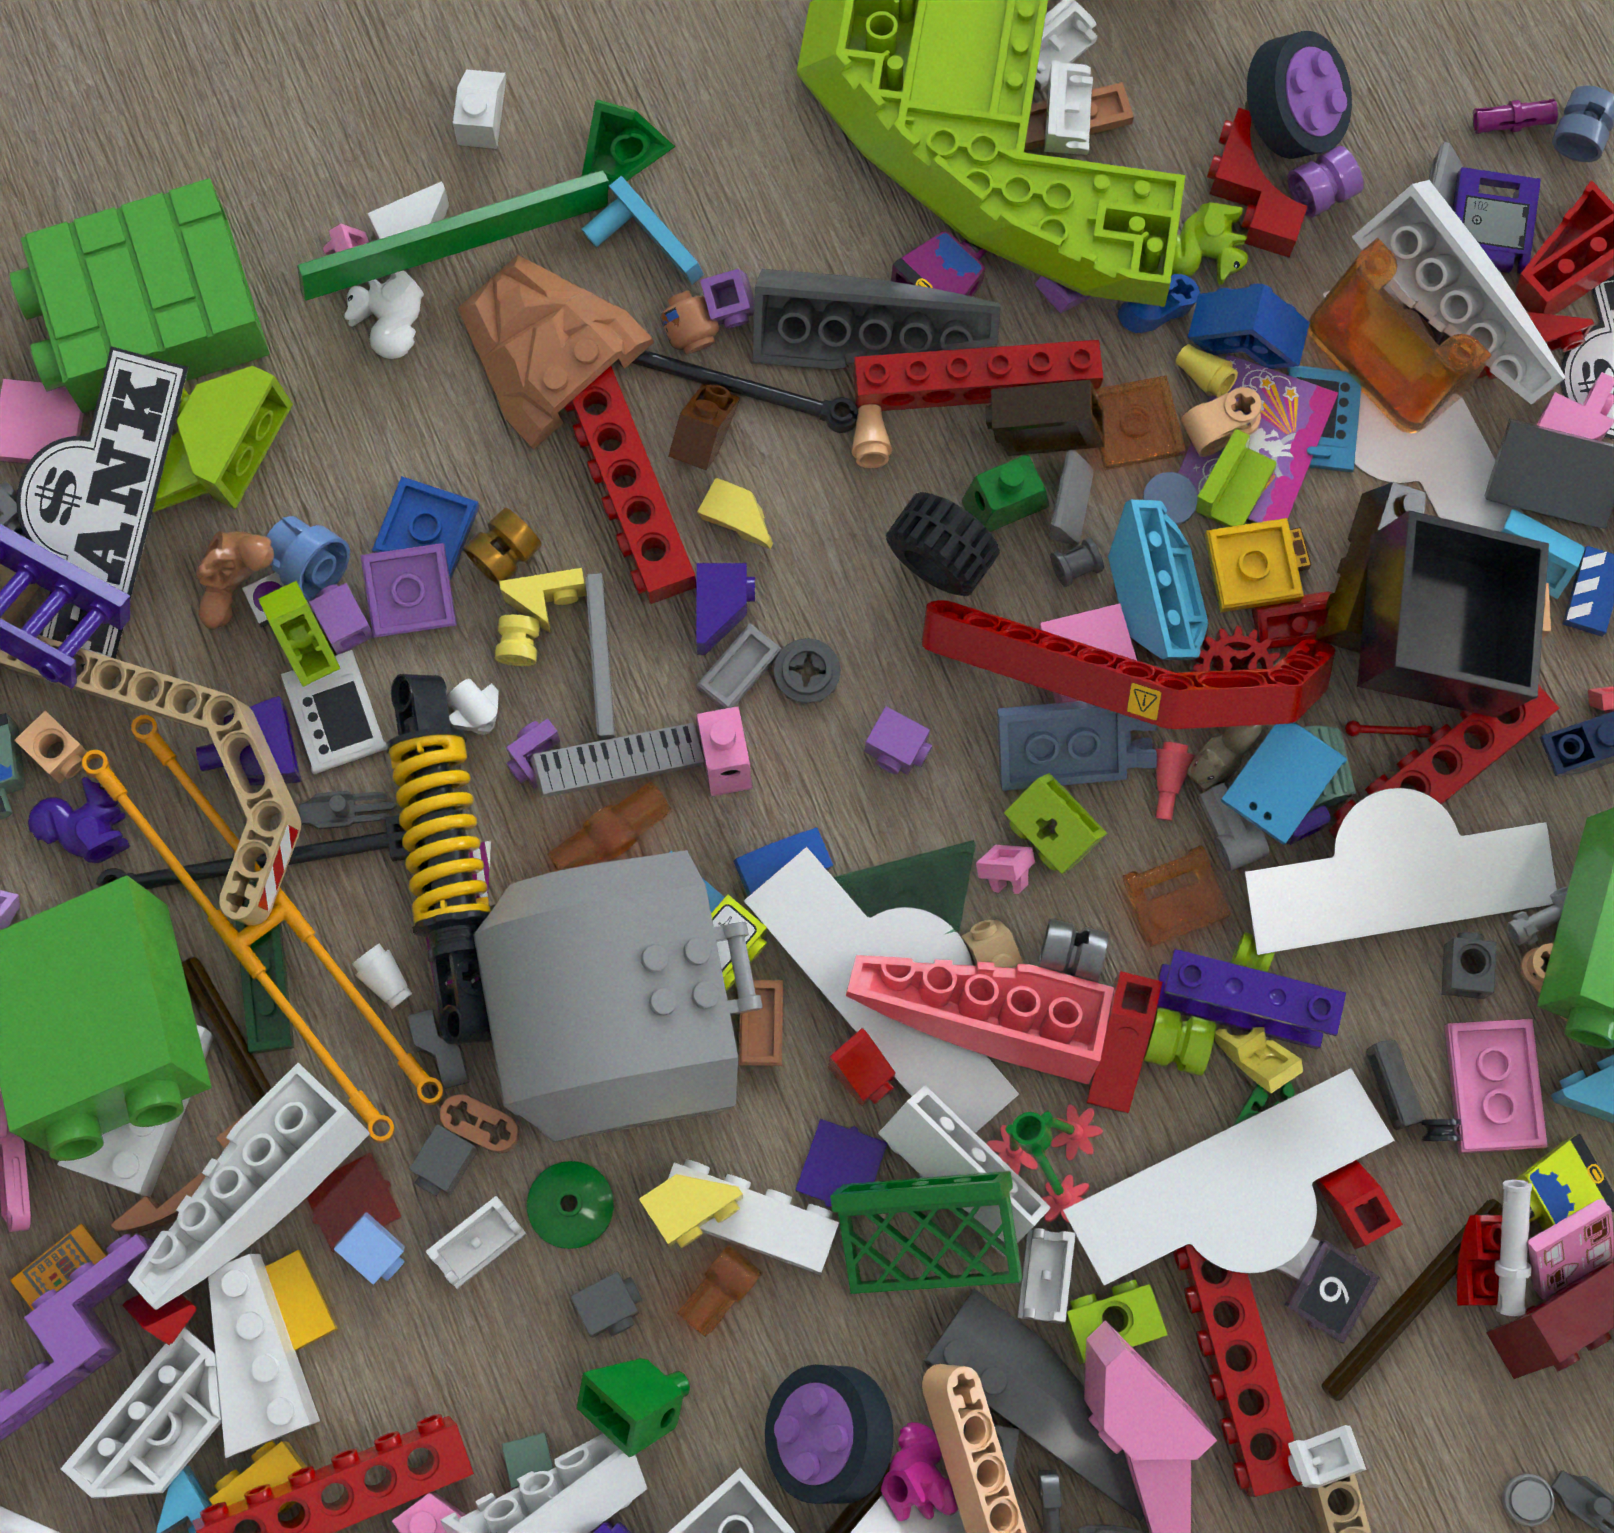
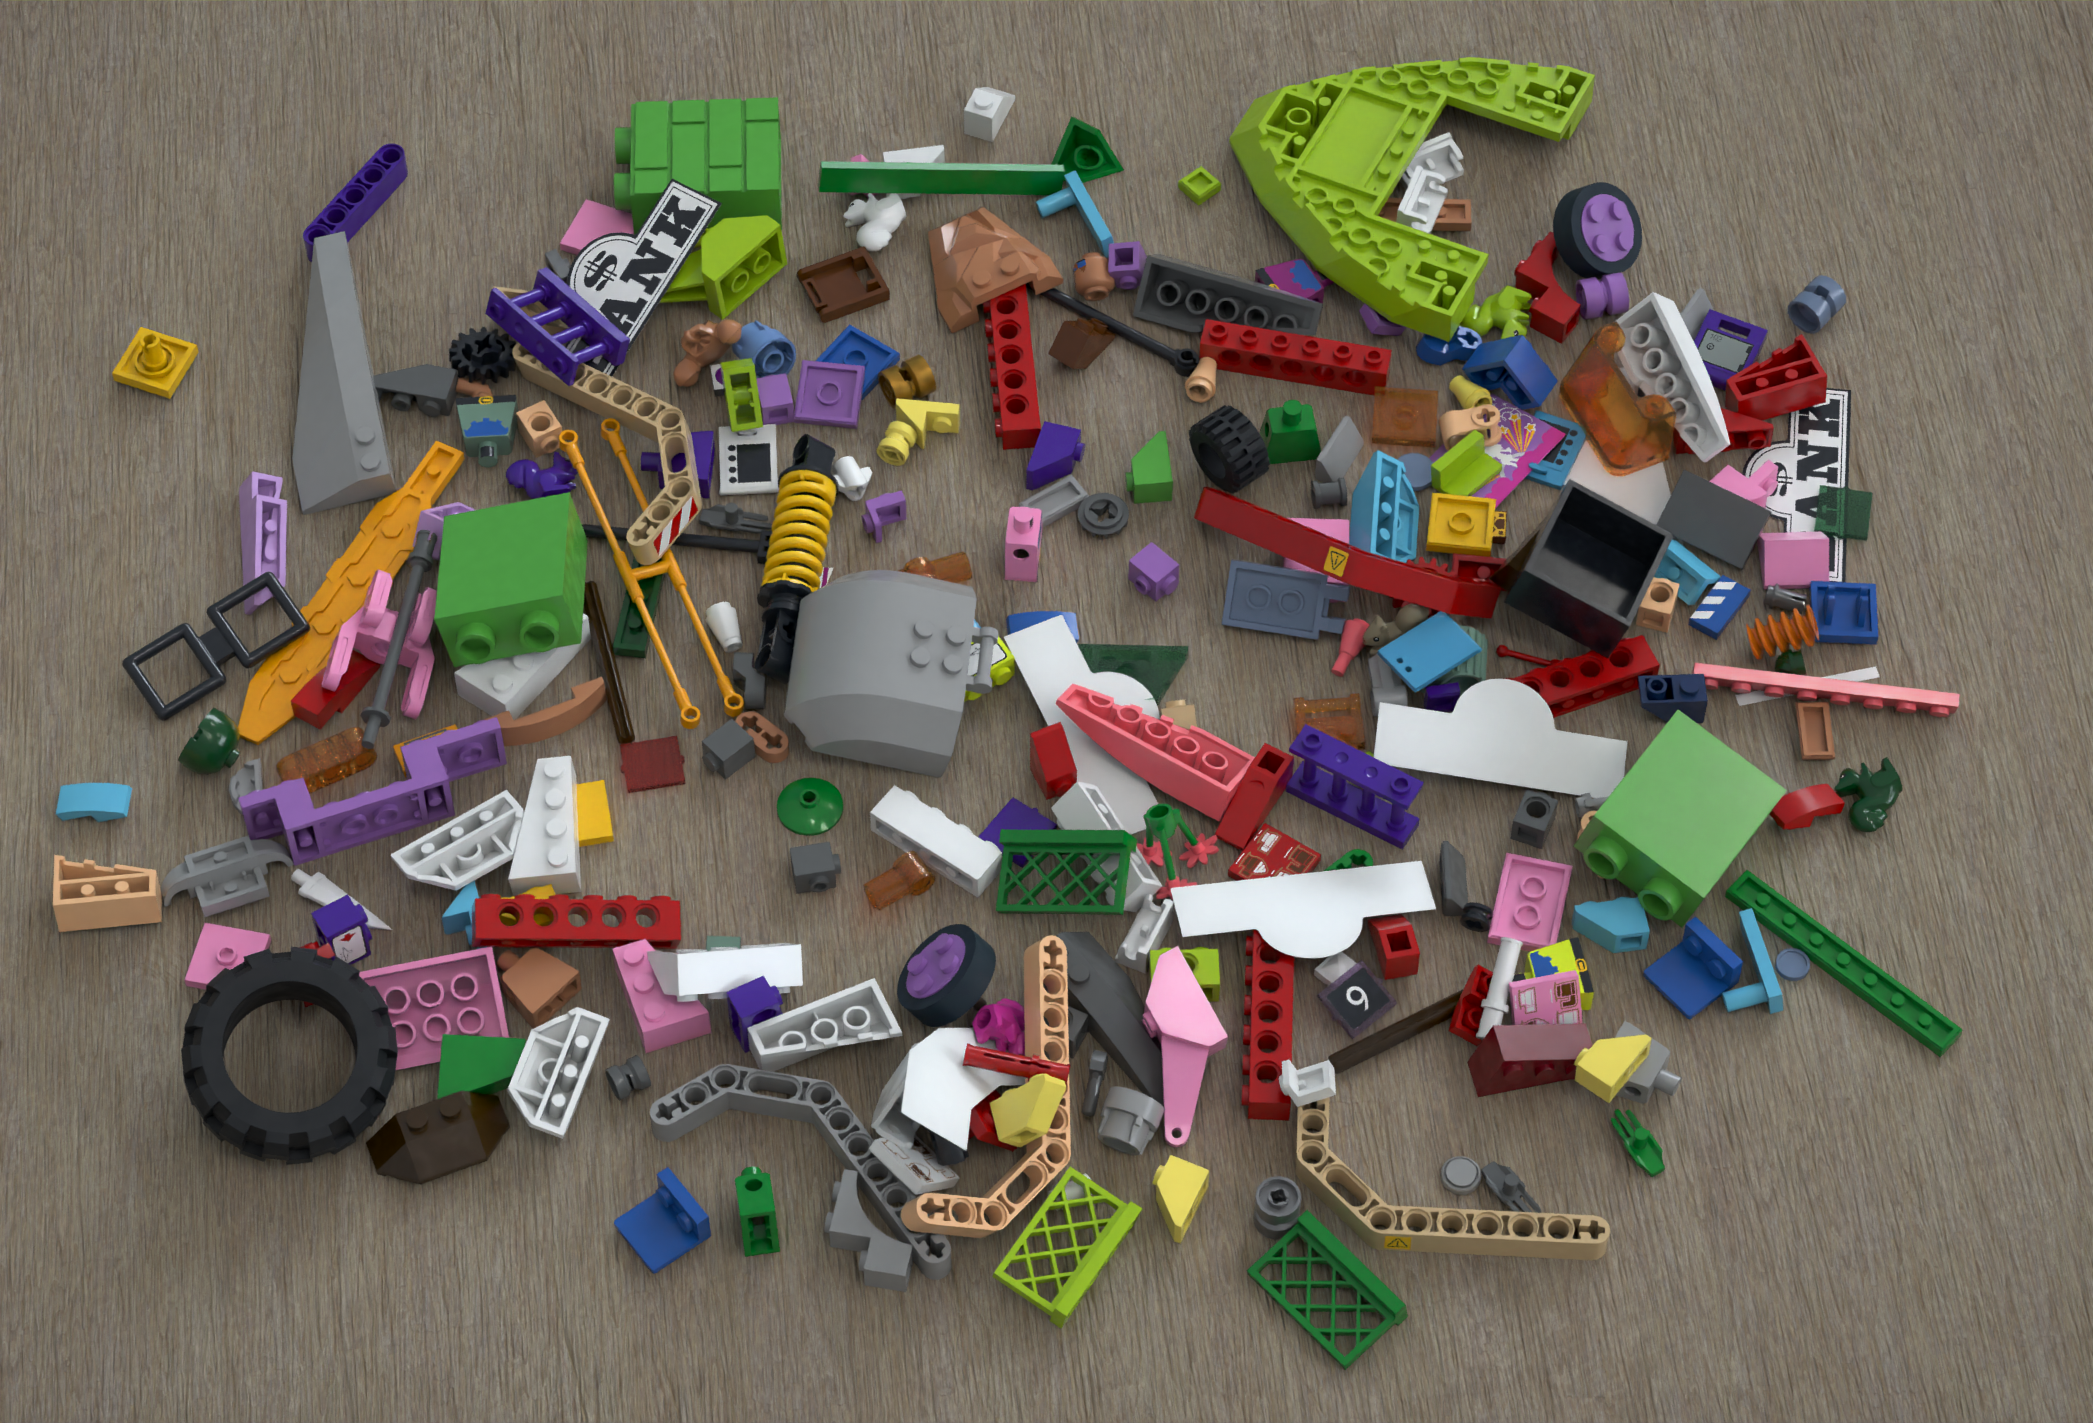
camera: 20 degrees right, 20 degrees down
(165, 1321) = (492, 784): red slope -> none
(265, 1171) = (603, 711): white wedge -> none
(368, 424) = (836, 288): none -> reddish brown container
(371, 1249) = (656, 788): light blue brick -> none
(476, 1242) = (733, 805): white hinge -> none
(600, 657) = (953, 469): light grey tile -> none
(617, 760) = (942, 531): light grey tile -> none
(632, 1402) = (822, 925): green torso -> none
(686, 1204) = (896, 805): light yellow slope -> none
(736, 510) = (1086, 401): light yellow slope -> none
(762, 1029) = (990, 725): nougat tile -> none
(778, 146) = (1199, 185): none -> lime tile
(850, 593) = (1151, 472): none -> bright green slope
(1005, 864) = (1206, 668): bright pink tile -> none
(1046, 418) = (1340, 372): dark brown window -> none
(1073, 951) = (1242, 733): flat silver wheel -> none
(1076, 829) = (1251, 648): lime brick -> none
(1169, 1117) = (1273, 855): none -> red tile
(1180, 1041) = (1293, 807): lime wheel -> none
(1260, 1058) = (1352, 835): light yellow slope -> none
(1515, 116) = (1764, 289): magenta pin -> none

